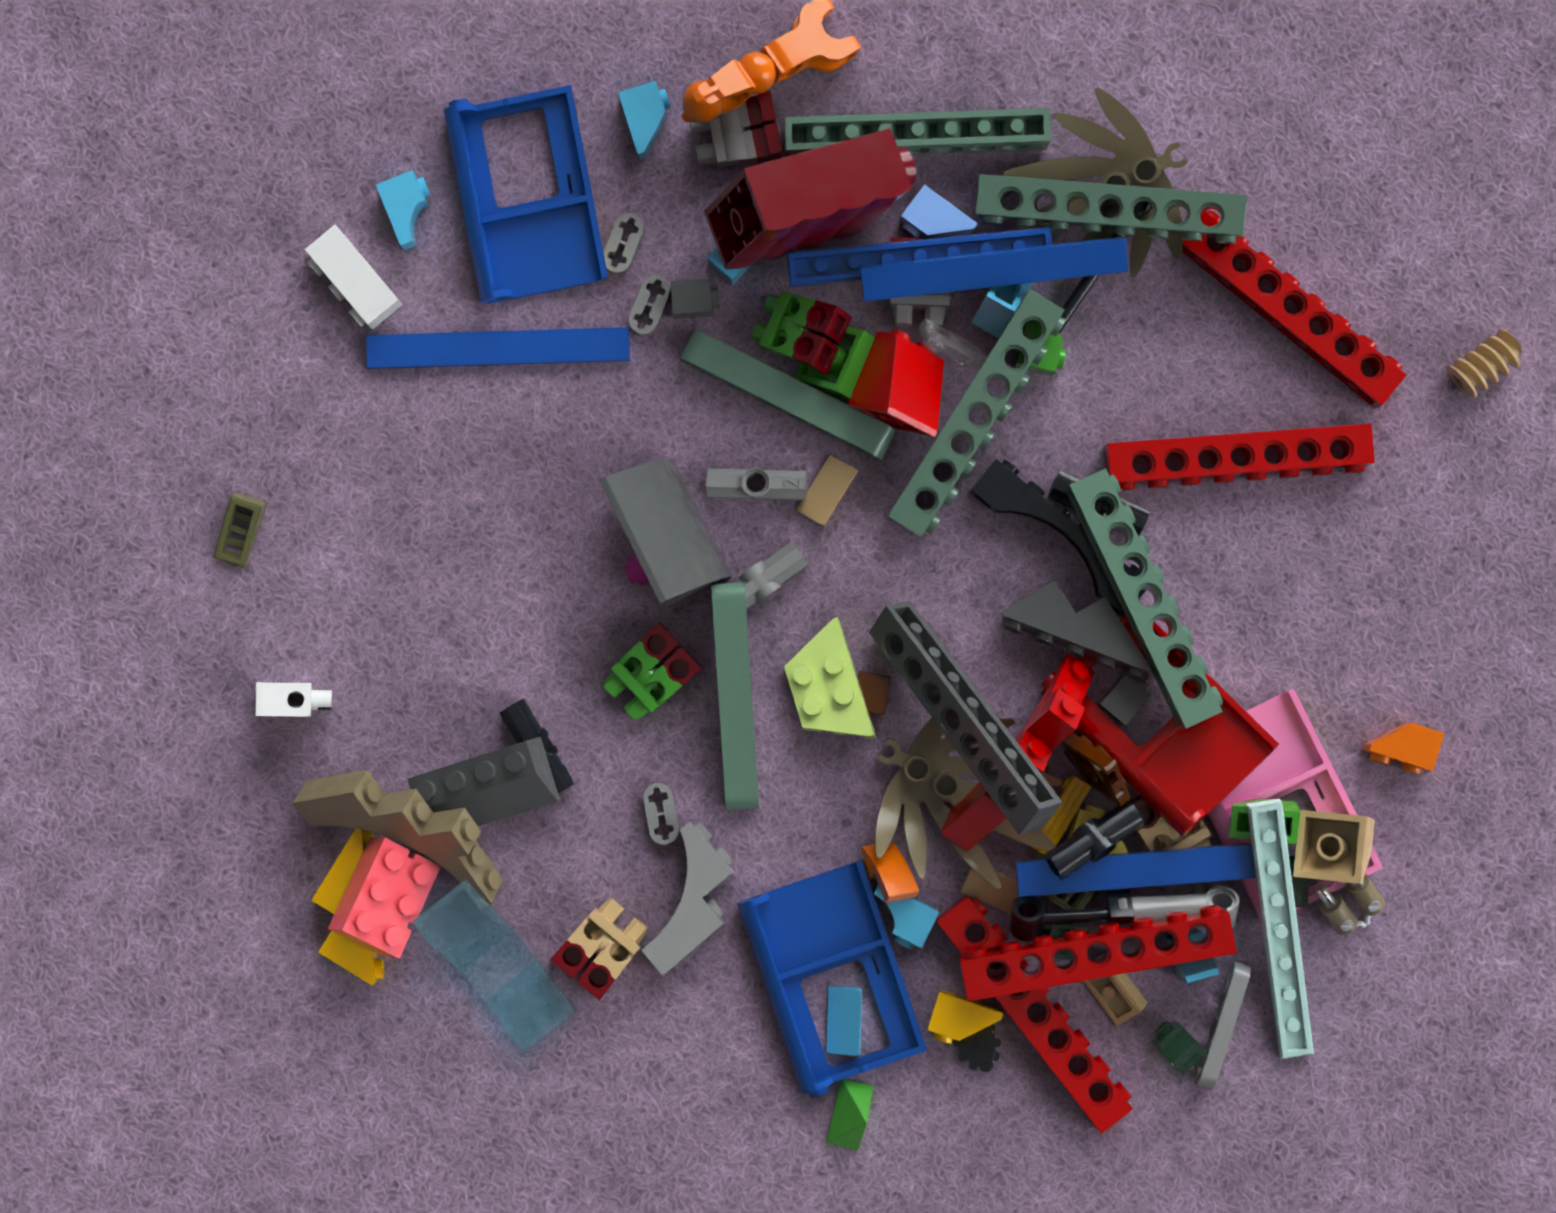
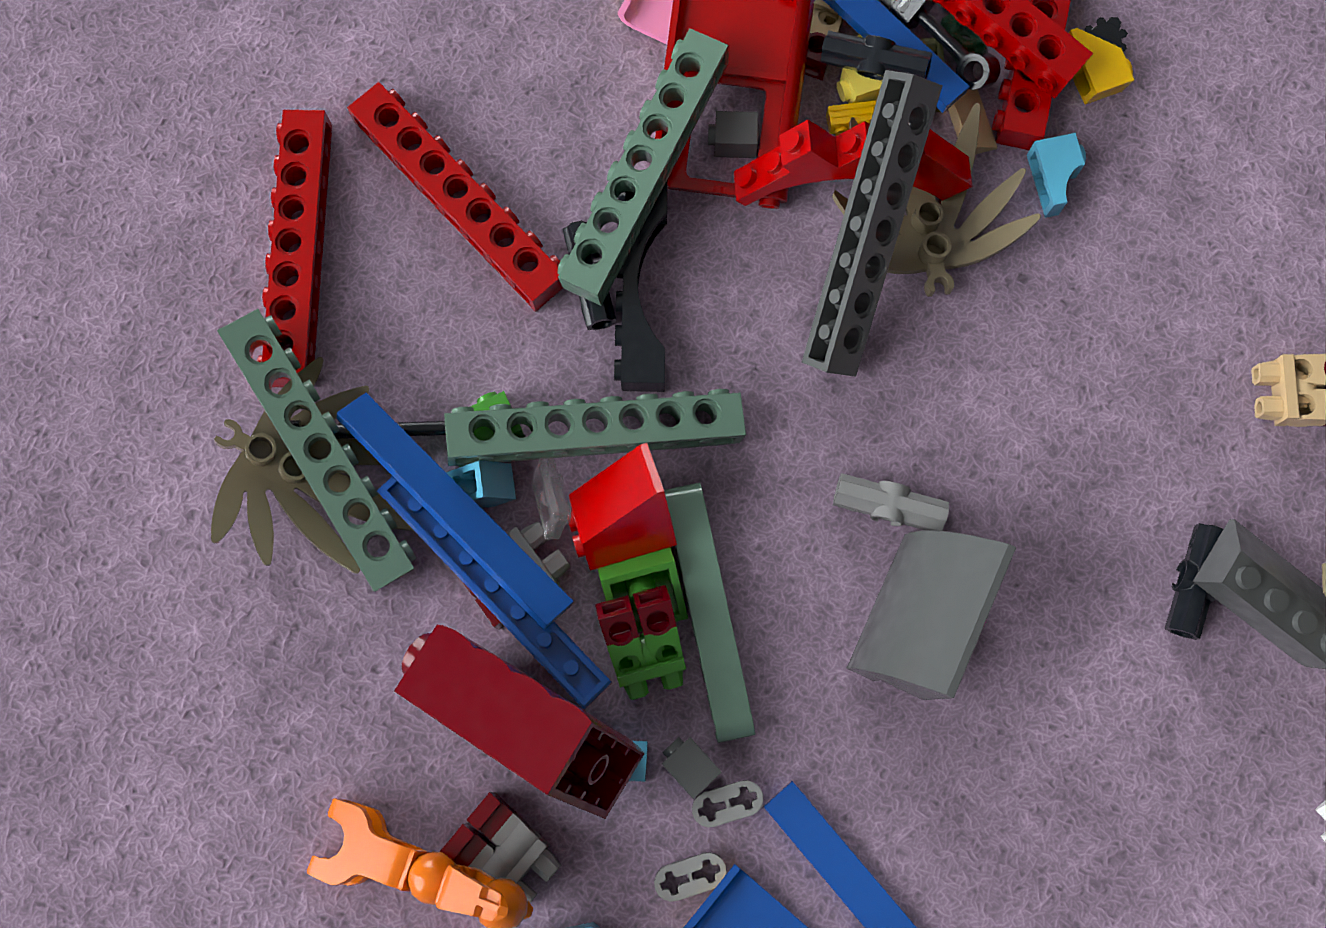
camera: 125 degrees left, 10 degrees down
(642, 676) = (1048, 531): bright green hips -> none
(653, 815) = (1159, 436): light grey beam -> none
(695, 916) = (1205, 334): light grey arch -> none
(735, 695) = (1006, 444): sand green beam -> none
(778, 486) = (825, 593): light grey piece -> none
(815, 929) = (1130, 235): blue piece -> none
(827, 491) = (763, 508): tan slope -> none
(828, 686) = (930, 373): yellowish green wing -> none
(844, 1020) = (1178, 155): medium azure slope -> none
(850, 1114) = (1243, 96): bright green slope -> none
(875, 691) = (903, 336): reddish brown slope -> none
(891, 873) = (1039, 196): orange slope -> none
(928, 130) = (375, 680): sand green brick -> none
(934, 217) = (445, 603): light blue slope -> none
(1090, 632) = (702, 196): dark grey slope -> none
(1096, 768) = (815, 91): reddish brown wing -> none
(1484, 363) = (225, 61): tan piece -> none

